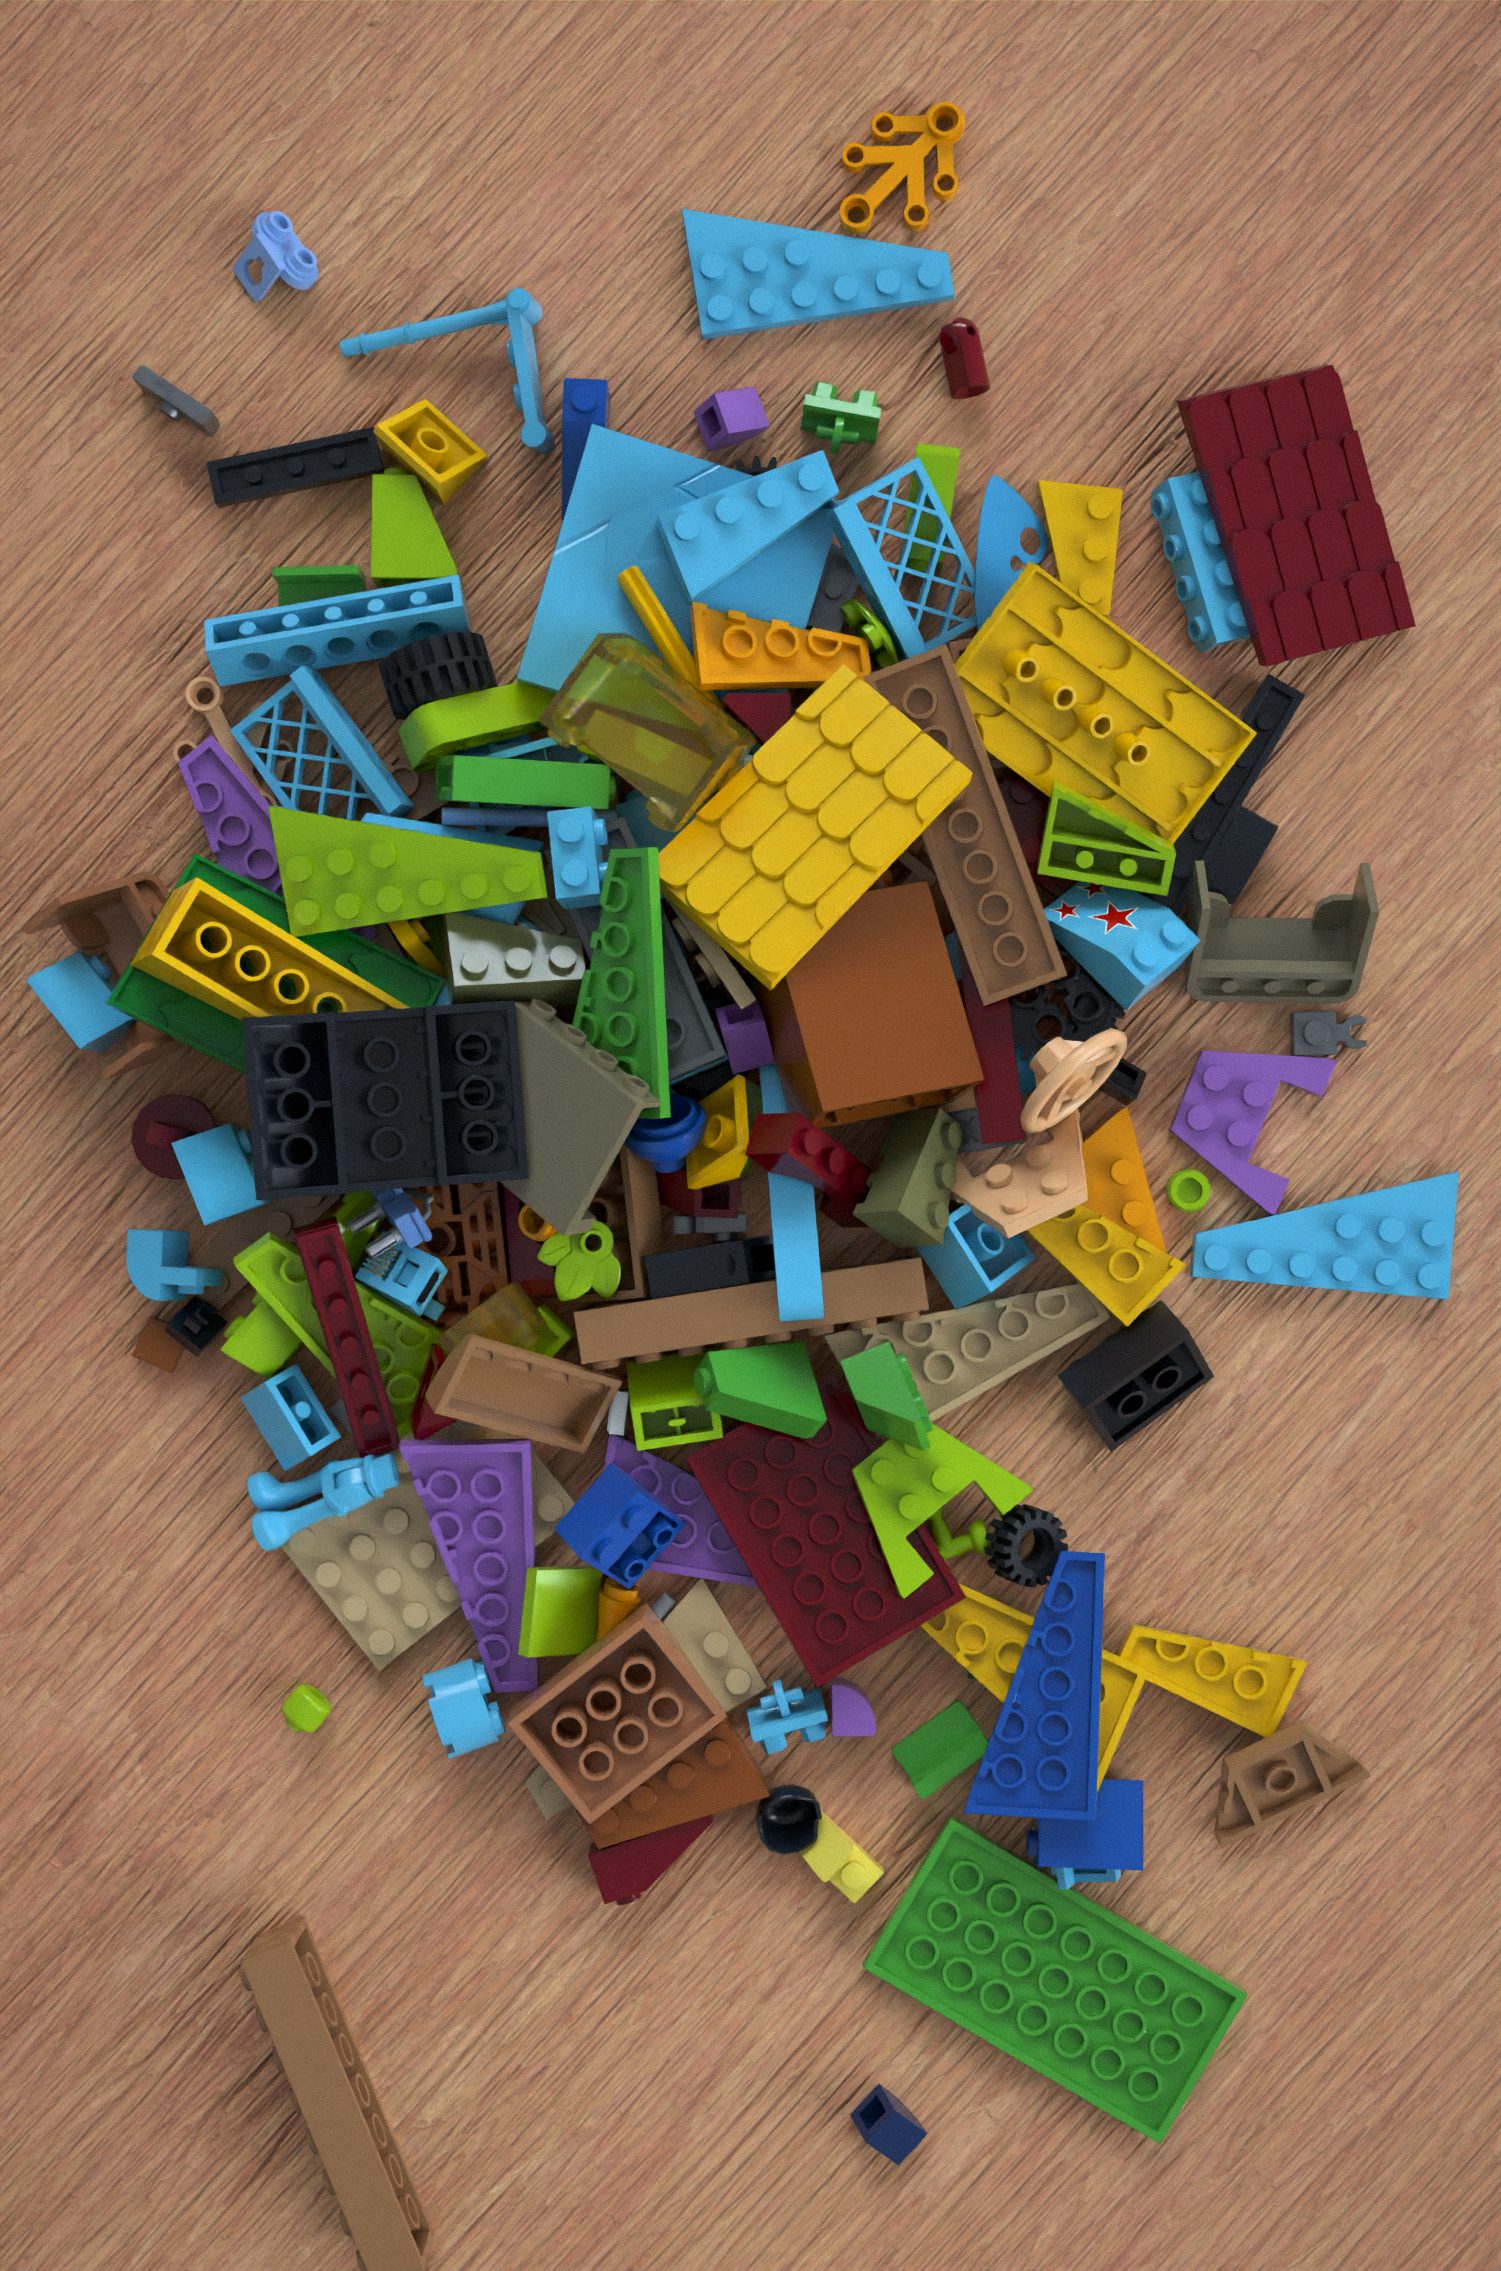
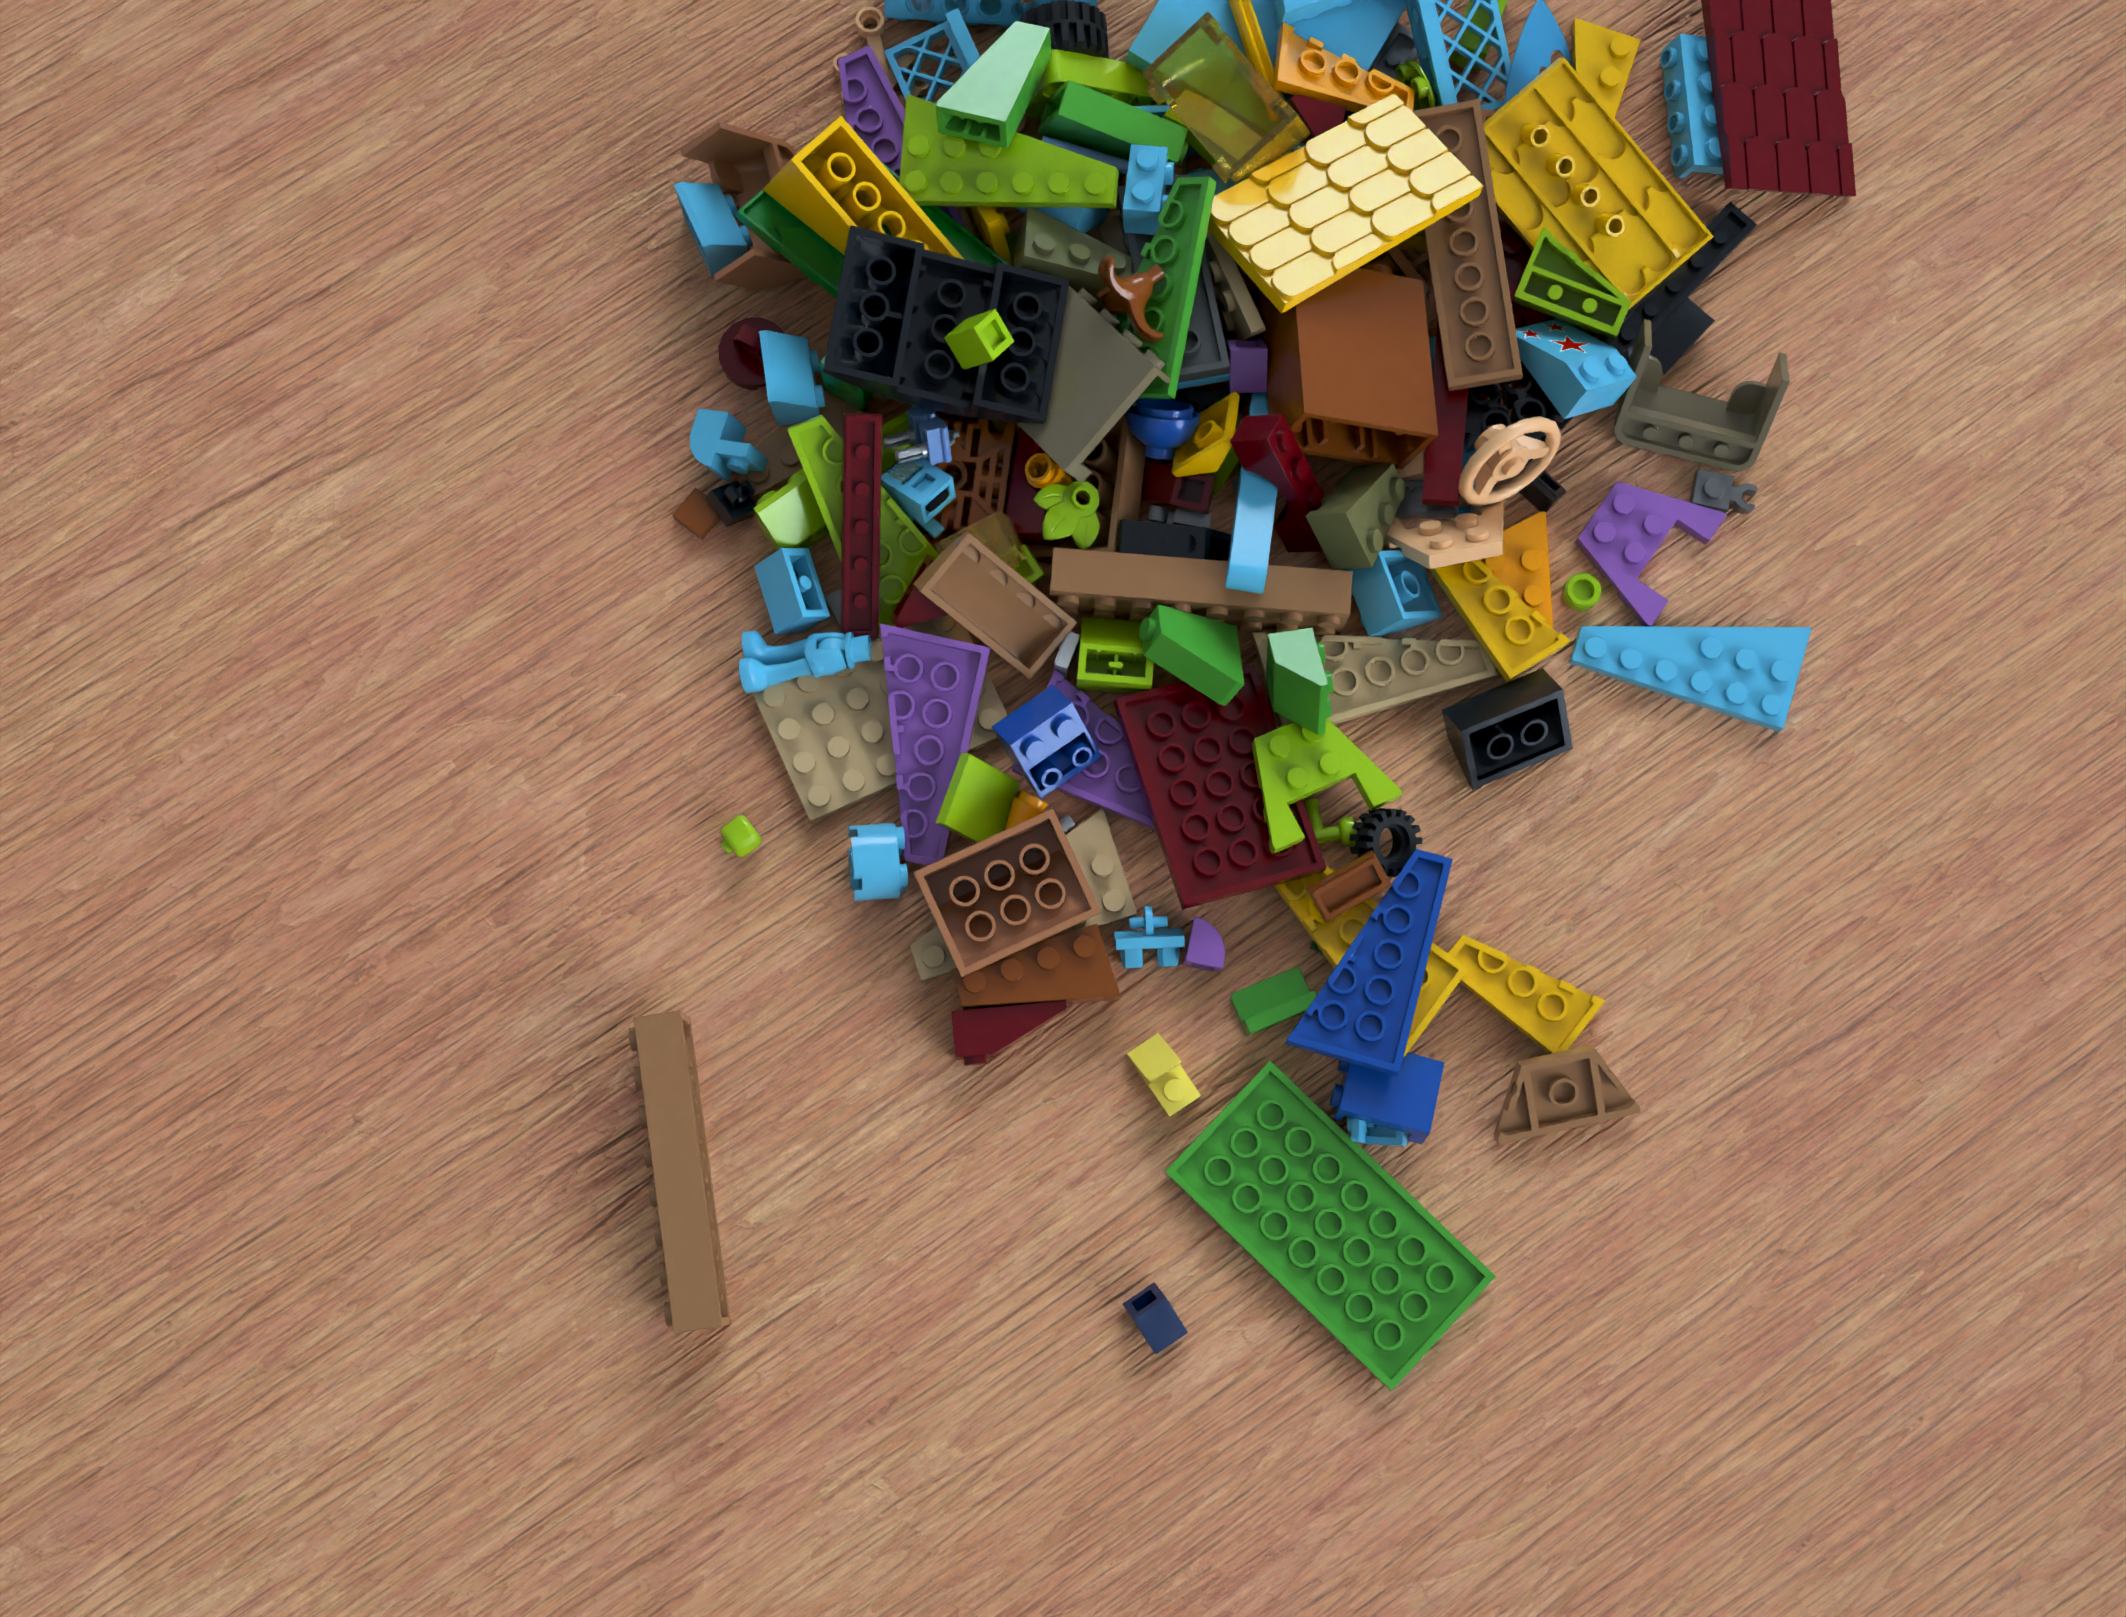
camera: 10 degrees right, 10 degrees down
(374, 781) = (997, 88): none -> slope
(427, 1108) = (979, 339): none -> lime panel
(592, 1007) = (1130, 295): none -> dark orange piece
(788, 1819) = (1130, 1025): black hair -> none
(995, 1614) = (1348, 886): none -> dark orange tile

